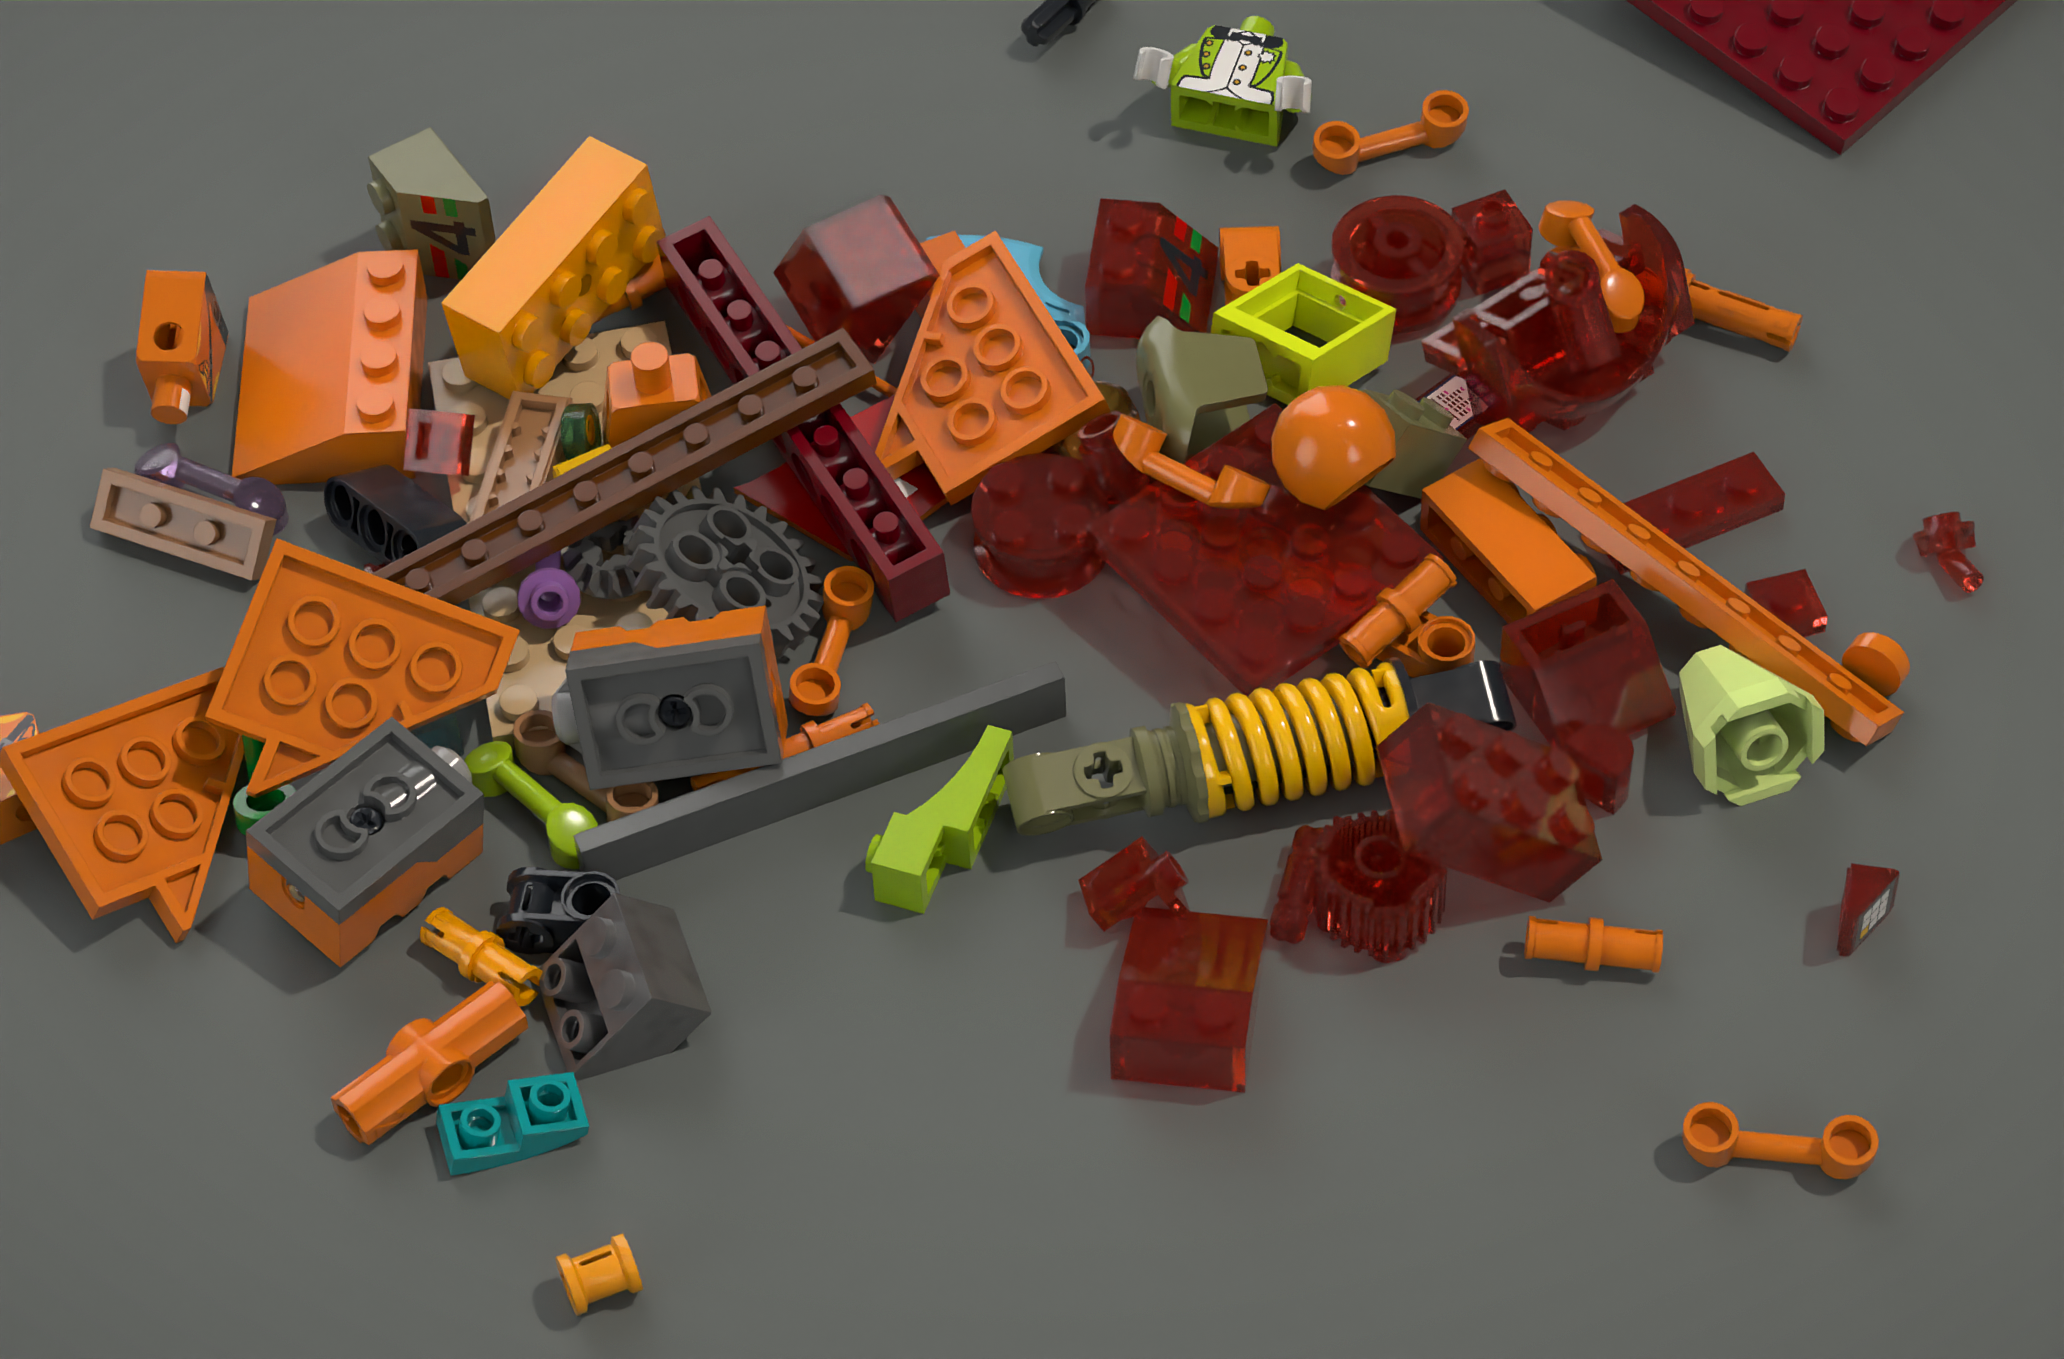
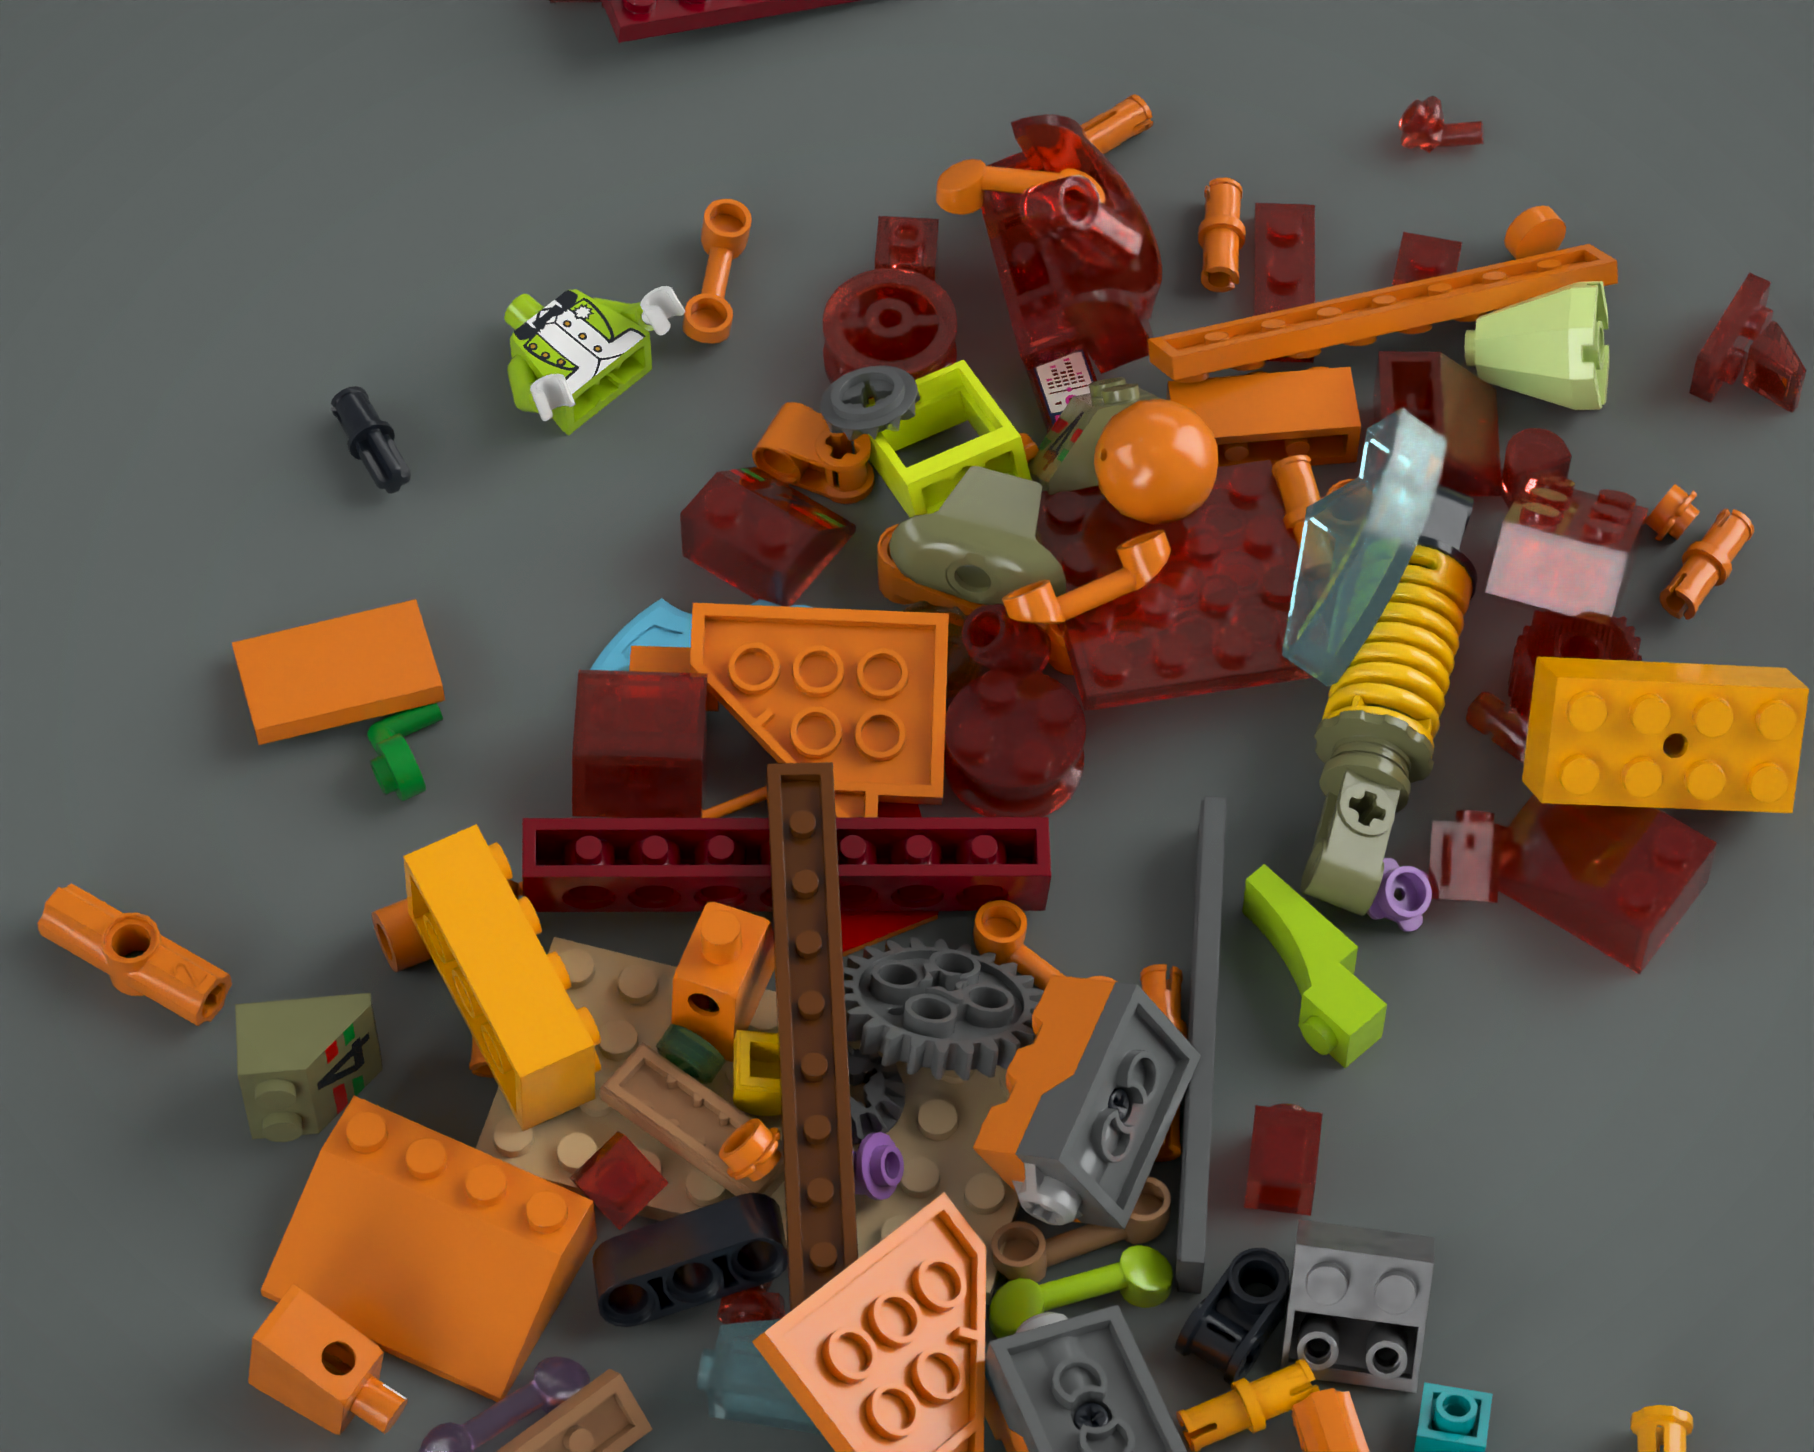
camera: 65 degrees left, 5 degrees up
(489, 493) = (751, 1151): none -> orange plate
(491, 87) = (161, 973): none -> orange piece
(737, 879) = (1283, 1159): none -> clear red brick
(763, 155) = (396, 765): none -> green plate
(830, 85) = (338, 672): none -> orange tile
(1049, 847) = (1415, 896): none -> medium lavender plate
(1294, 261) = (846, 401): none -> dark grey gear
(1330, 955) = (1664, 735): none -> light orange brick
(1355, 633) = (1360, 545): none -> clear light blue slope
(1633, 895) = (1673, 513): none -> orange plate
(1698, 443) = (1221, 235): none -> orange pin
(1832, 850) = (1724, 352): none -> clear red plate

